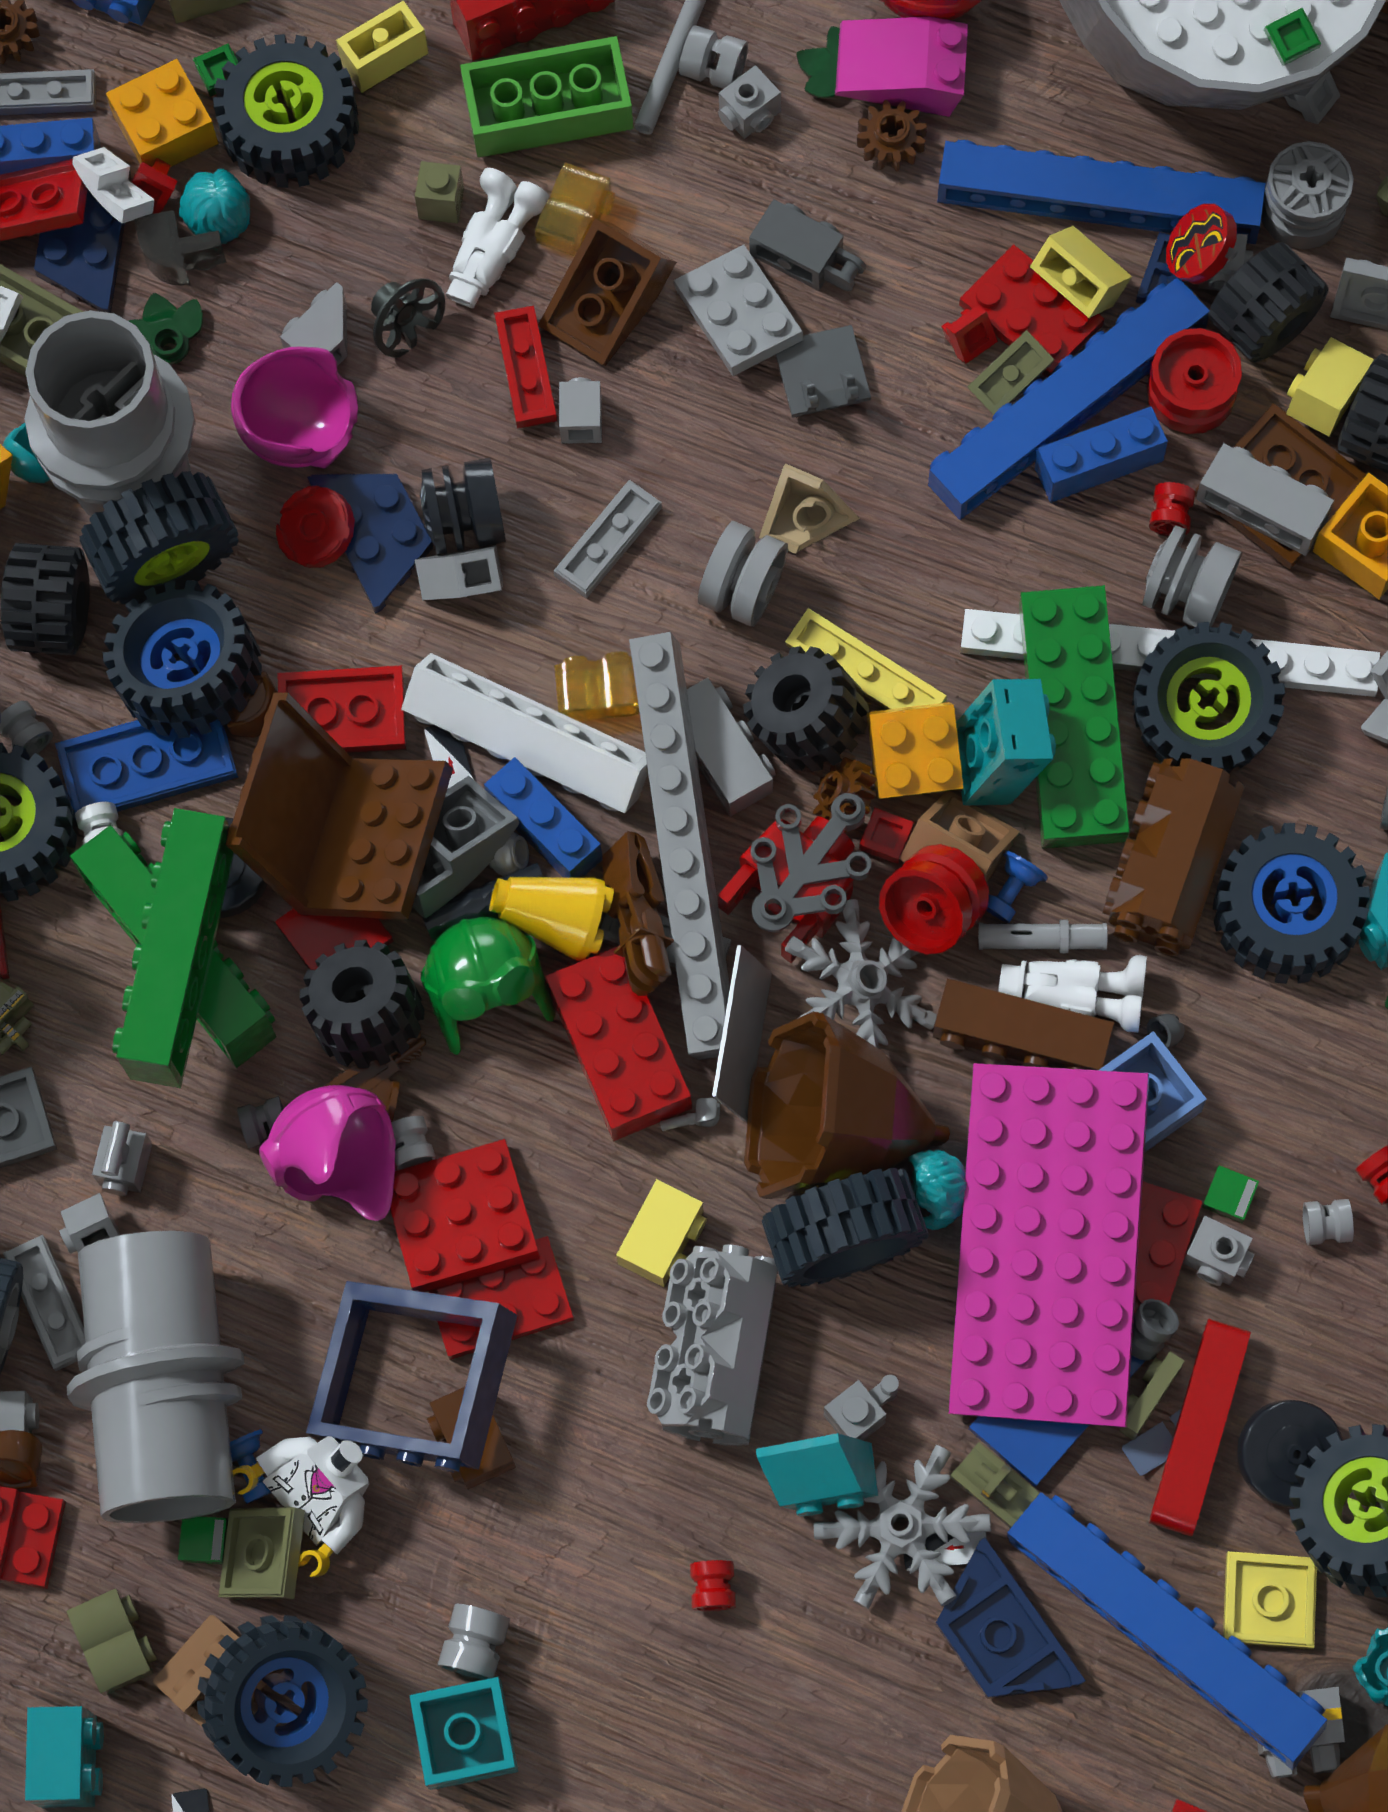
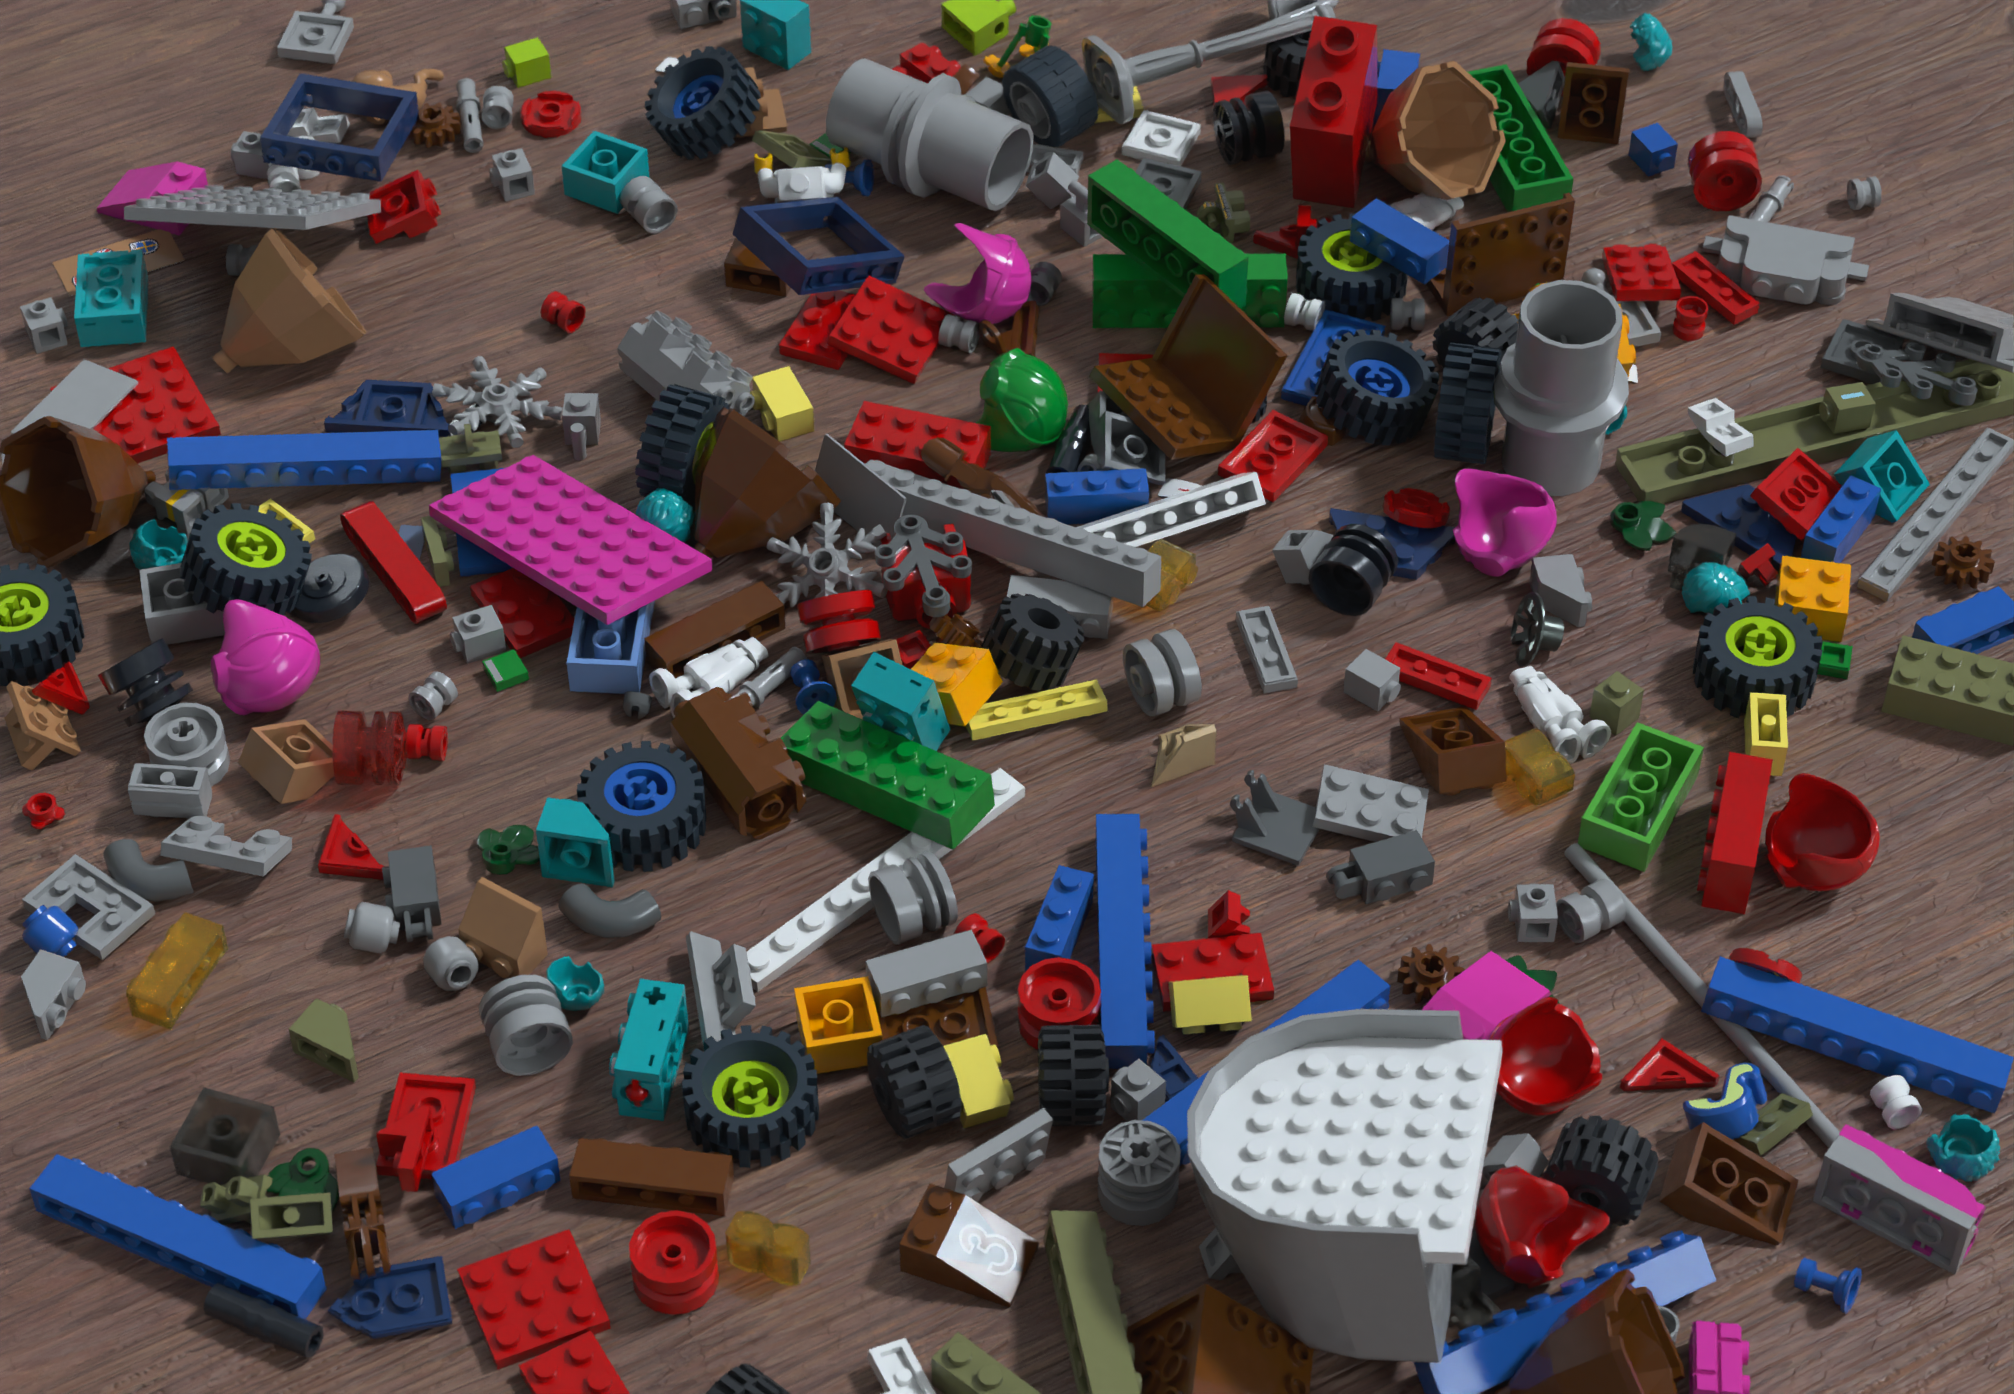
camera: 125 degrees right, 25 degrees down
(108, 182) = (1774, 527): white slope -> none
(111, 1641) = (812, 81): olive brick -> none
(362, 1004) = (1065, 338): black wheel -> none
(555, 910) = (1027, 451): yellow cone -> none
(820, 1473) = (566, 371): teal slope -> none
(1011, 372) = (1170, 915): olive plate -> none
(1152, 1326) = (469, 560): dark grey wheel -> none
(1200, 243) = (1155, 1062): red tile -> none
(1240, 669) = (814, 825): black wheel -> none
(1292, 36) = (1236, 1124): green tile -> none

